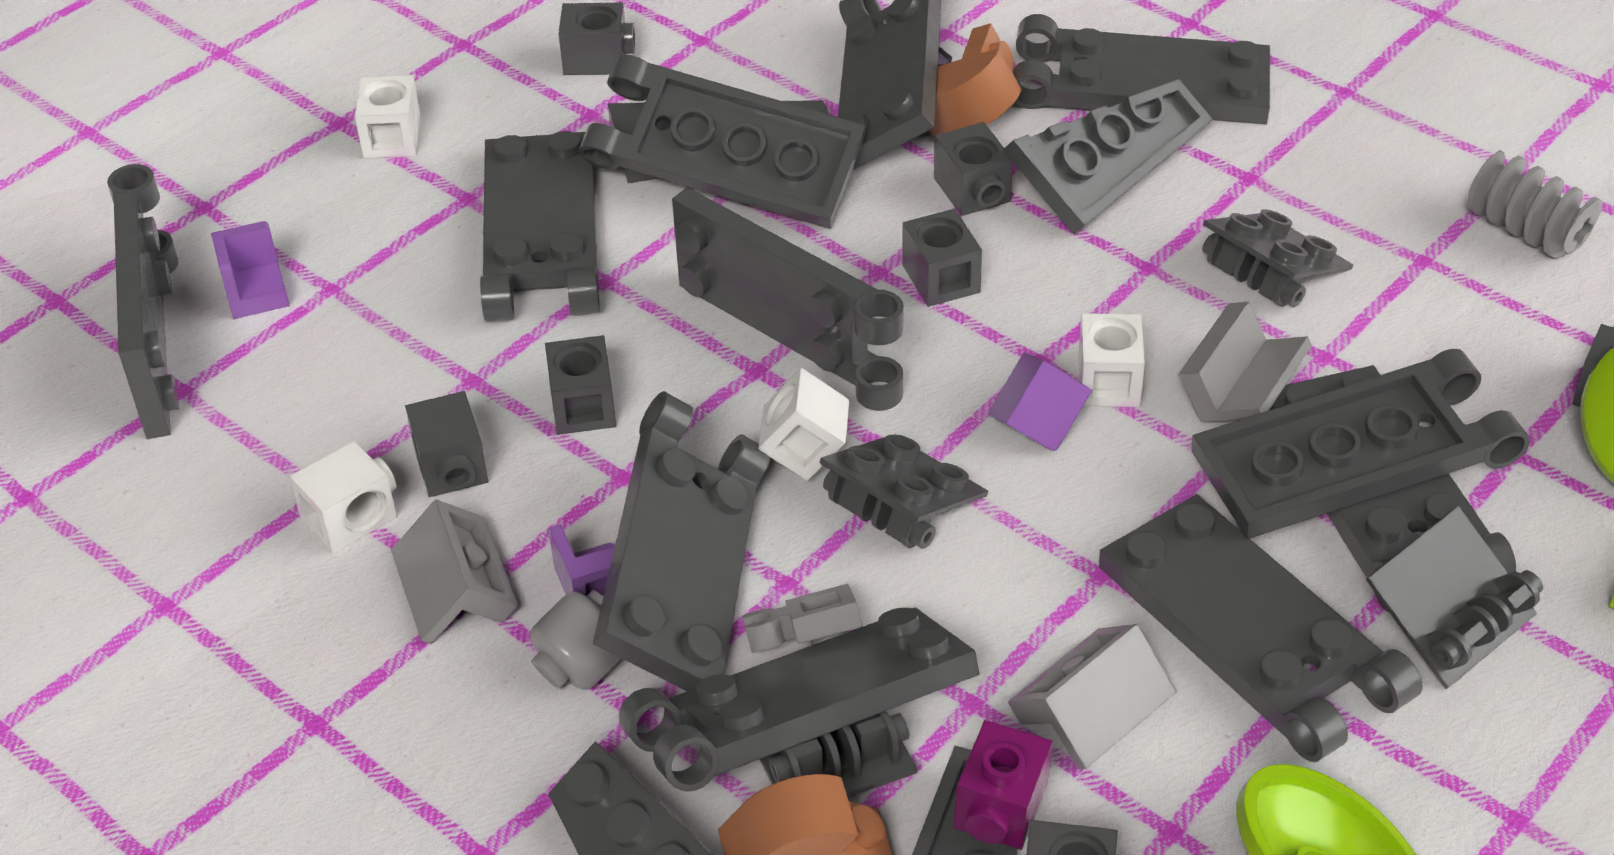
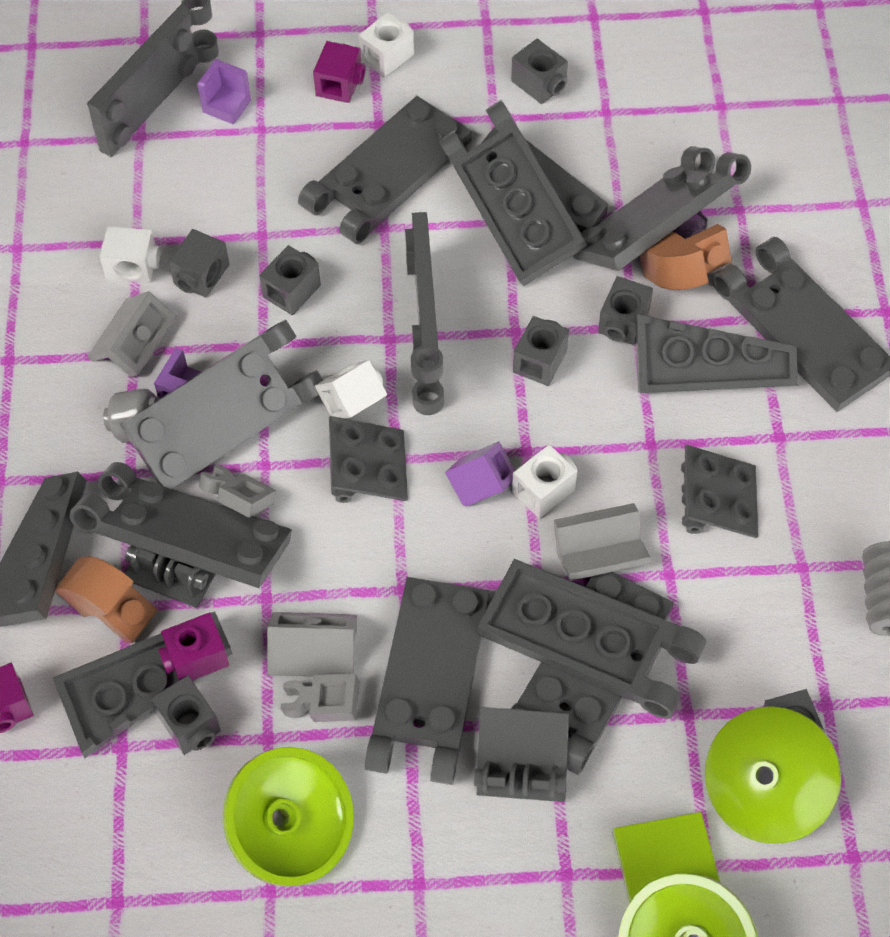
camera: 45 degrees right, 15 degrees up
(365, 171) = (338, 71): none -> magenta brick
(1185, 722) = (328, 699): none -> light grey plate

